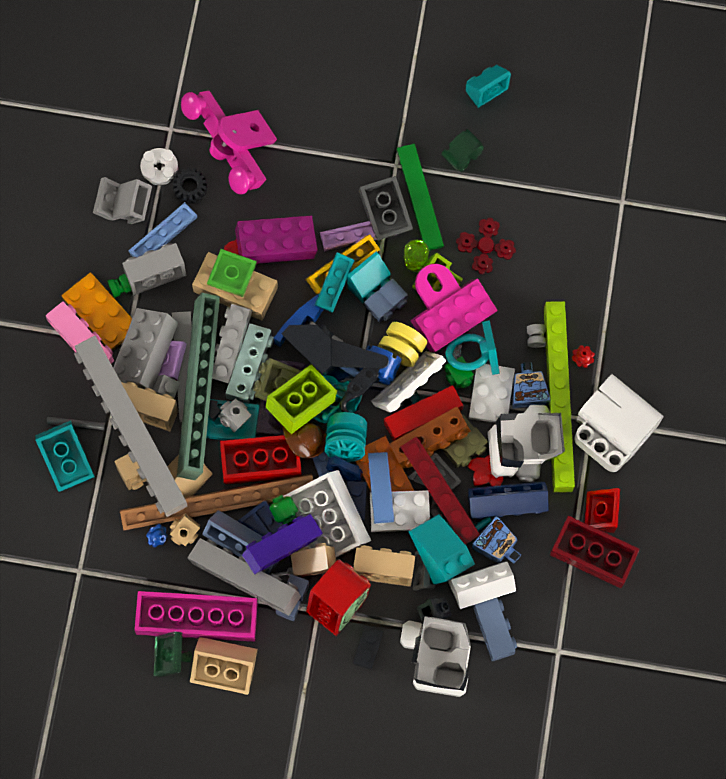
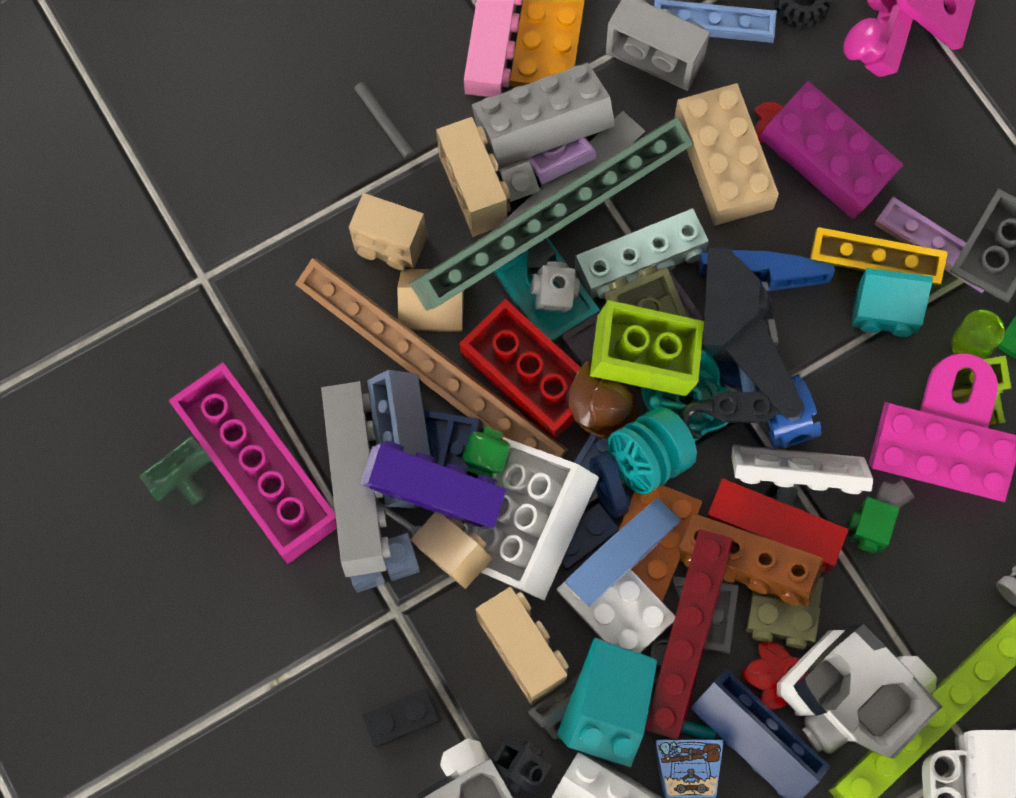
camera: 55 degrees right, 0 degrees up
(64, 456) = (329, 138): teal slope -> none
(119, 285) = (596, 23): green wheel -> none
(130, 426) = (419, 174): light grey brick -> none
(156, 535) = (322, 329): blue plant -> none
(185, 523) = (355, 355): tan brick -> none
(223, 665) = (221, 550): tan slope -> none
(231, 273) = (735, 129): bright green plate -> none
(231, 342) = (646, 205): light grey brick -> none
(334, 282) = (842, 263): teal tile -> none
(337, 596) = (427, 617): red brick -> none
(386, 300) = (882, 351): sand blue brick -> none
(403, 342) = (844, 417): light yellow wheel -> none
(487, 349) = (940, 531): teal tile -> none
(491, 393) = (887, 589): white plate -> none
(529, 388) = (940, 636): torso -> none

